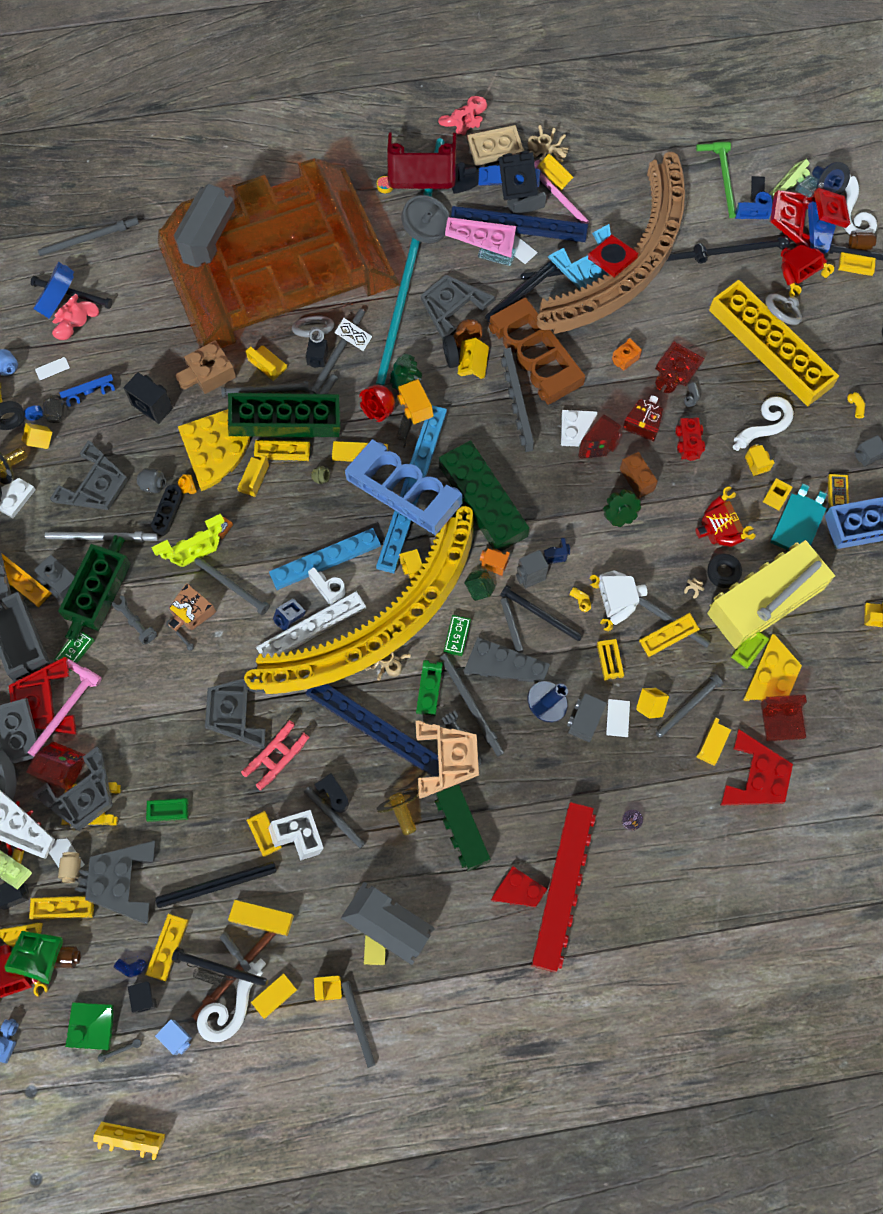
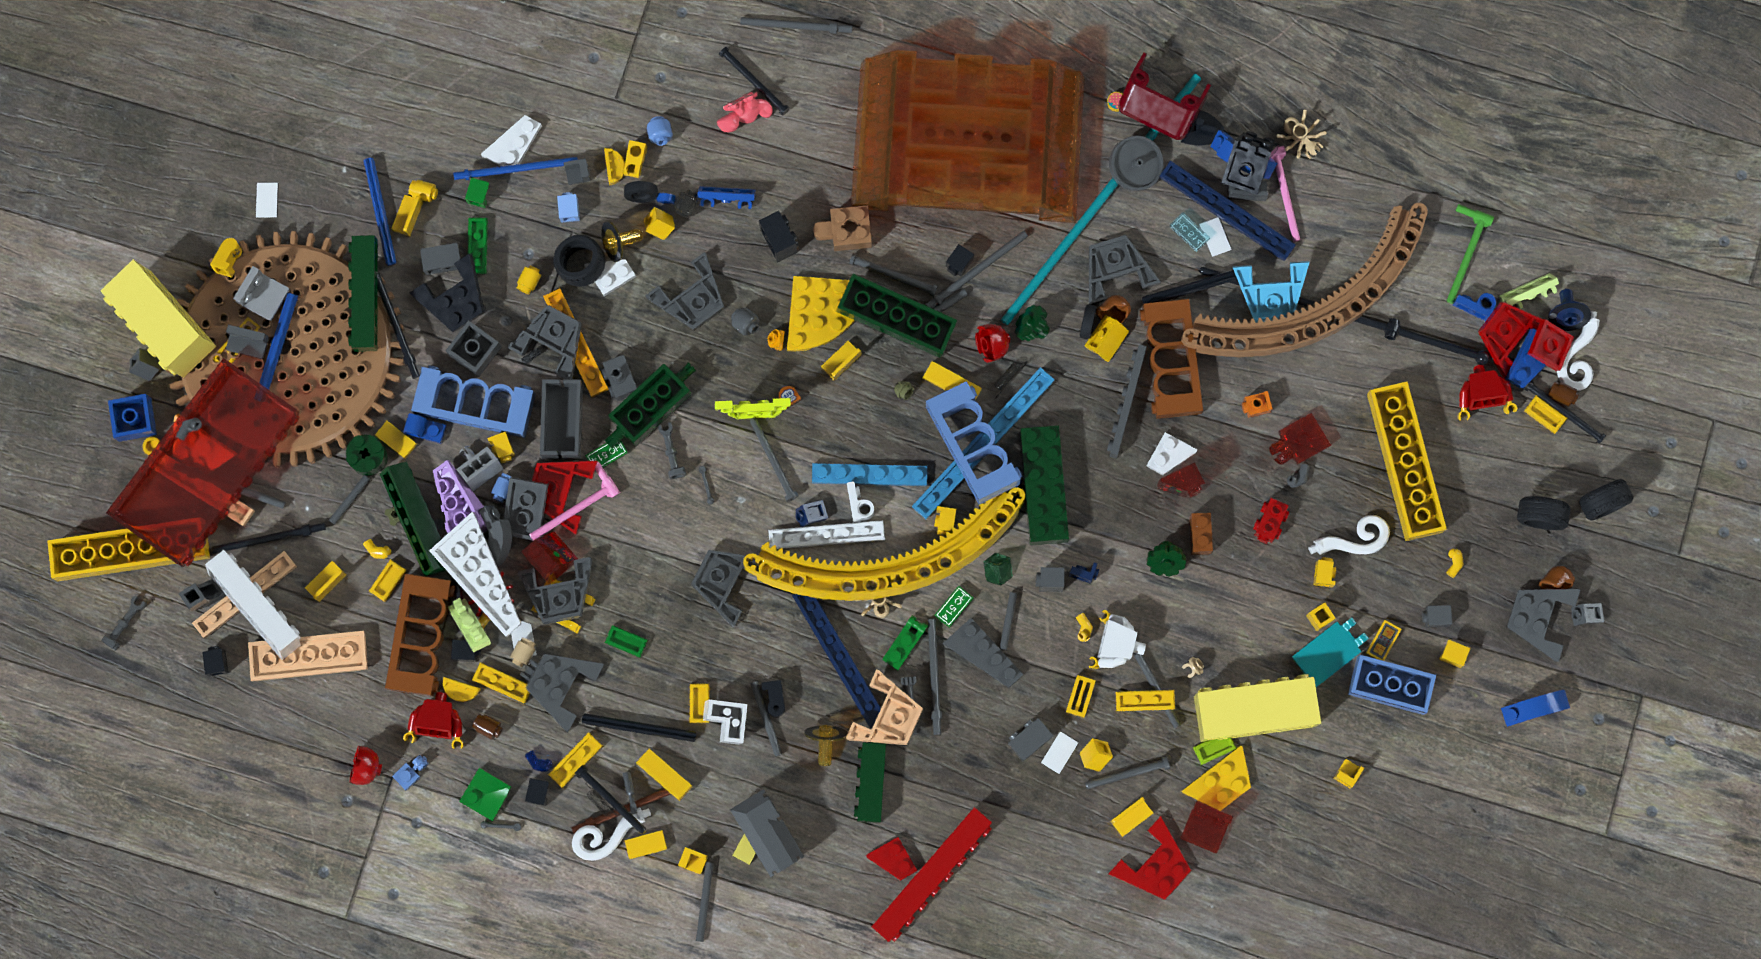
camera: 30 degrees right, 10 degrees up
(34, 956) = (465, 715): green plate -> none
(52, 368) = (702, 155): white sticker -> none
(54, 290) = (740, 76): blue arch -> none
(129, 1139) = (480, 900): yellow plate -> none
(137, 536) = (709, 371): light grey bar -> none
(166, 501) = (733, 363): black beam -> none
(174, 1038) = (550, 838): light blue brick -> none
(190, 609) = (725, 466): torso -> none
(203, 225) = (904, 93): dark grey brick -> none
(266, 362) = (908, 246): yellow panel -> none
(275, 743) = (747, 629): coral piece -> none
(282, 450) = (880, 346): yellow tile -> none
(308, 333) = (965, 244): light grey piece -> none
(353, 334) = (1004, 256): white sticker -> none
(415, 402) = (1027, 360): light orange brick -> none
(465, 116) = (1234, 59): coral animal -> none
(490, 145) = (1250, 109): tan plate -> none
(490, 236) = (1189, 212): bright pink wing -> none
(494, 560) = (1023, 552): orange brick -> none
(540, 613) = (1040, 623): black bar -> none
(548, 701) = (1002, 707): piece -> none
(555, 171) = (1294, 169): yellow tile -> none
(613, 255) = (1294, 299): red tile -> none
(632, 820) = (1022, 848): clear purple tile -> none
(644, 418) = (1239, 479): clear red torso -> none
(716, 578) = (1231, 676): black tyre -> none
(722, 523) = (1253, 619): torso -> none
(757, 186) = (1495, 281): black sticker -> none
(765, 613) = (1234, 727): light grey bar -> none
(780, 315) = (1448, 428): light grey piece -> none
(807, 186) = (1540, 309): clear light blue tile -> none

